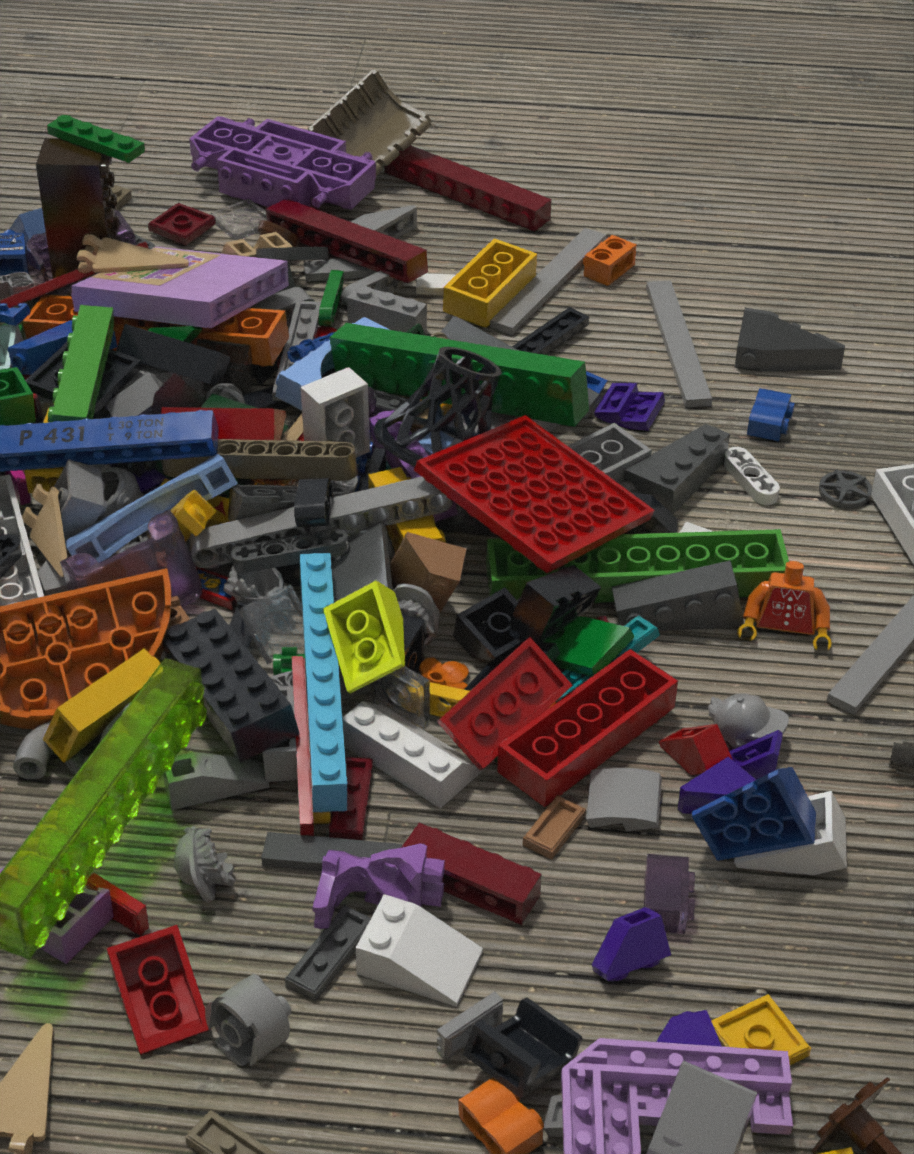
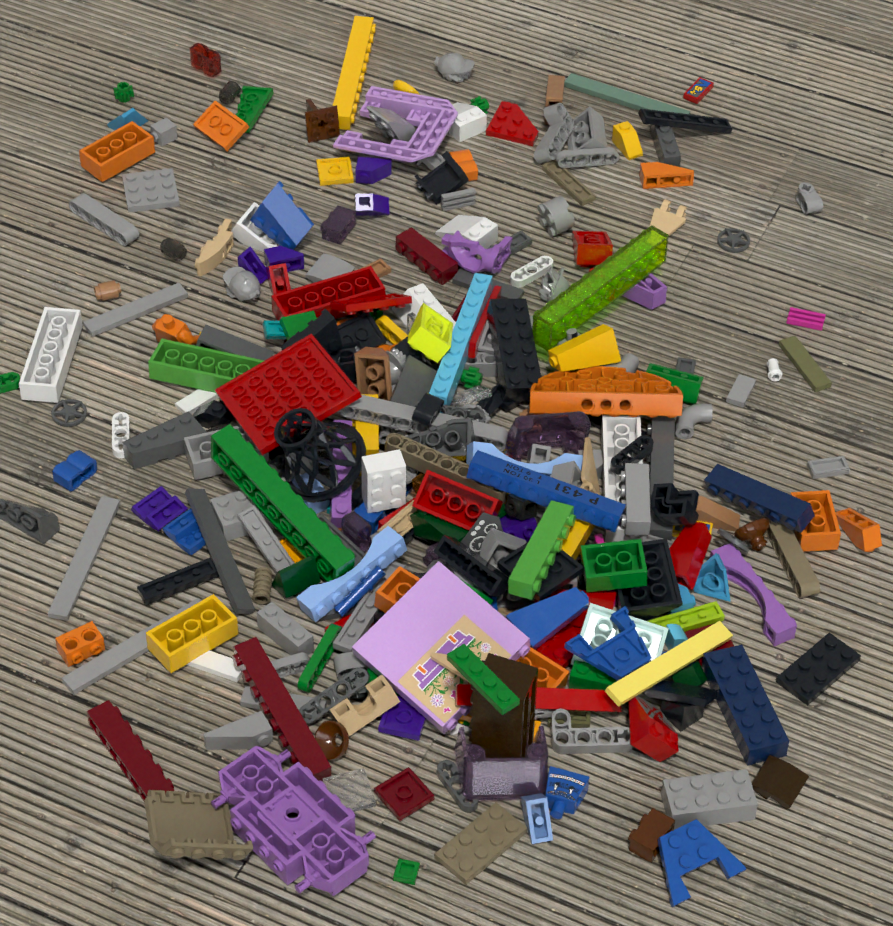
camera: 160 degrees left, 5 degrees up
(155, 180) = (406, 871): none -> green tile
(192, 514) = (501, 439): yellow brick -> none
(261, 923) = (521, 277): none -> white beam
(844, 779) = (217, 250): none -> tan slope

